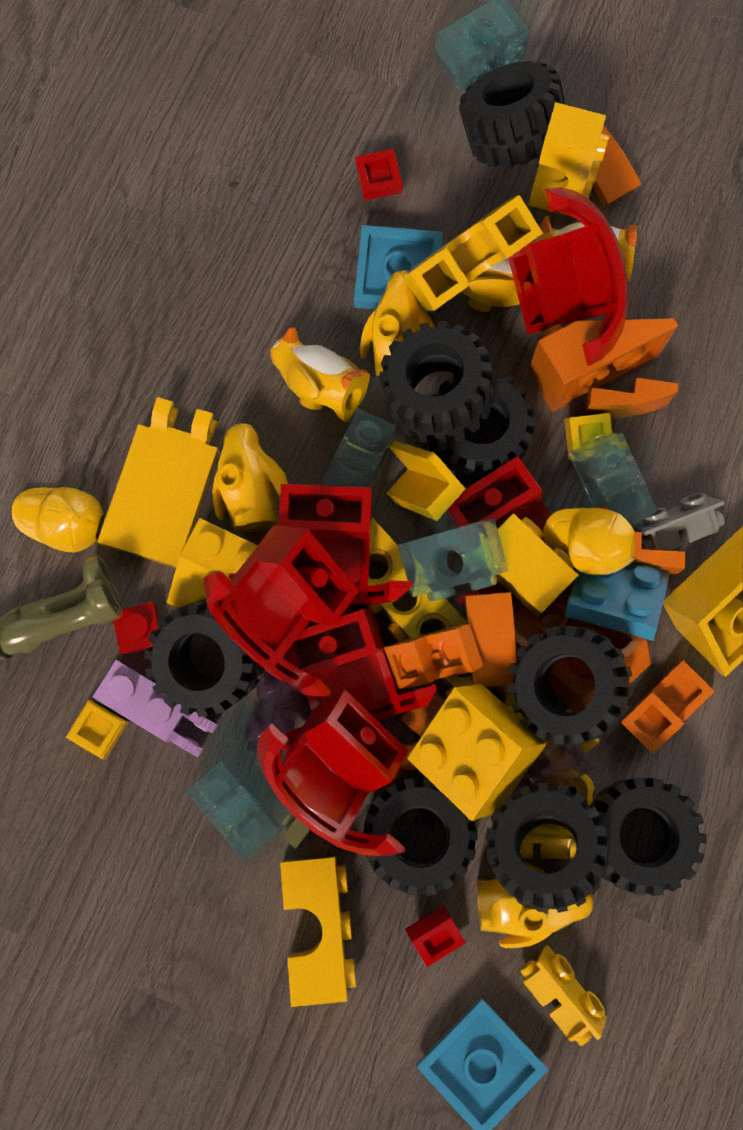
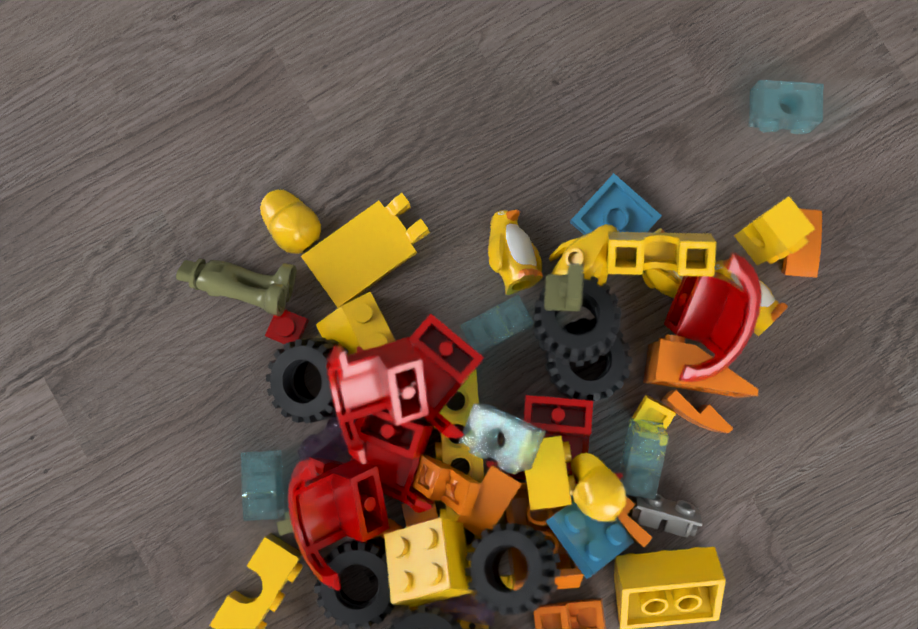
camera: 35 degrees right, 5 degrees up
(97, 729) = (218, 371): yellow tile -> none
(136, 700) = (252, 366): lavender hinge -> none
(247, 482) = (418, 287): yellow animal -> none
(378, 175) = (650, 146): red plate -> none
(407, 351) = (564, 291): none -> olive bracket
(426, 485) = (522, 373): yellow panel -> none
(510, 112) = (765, 171): black tyre -> none

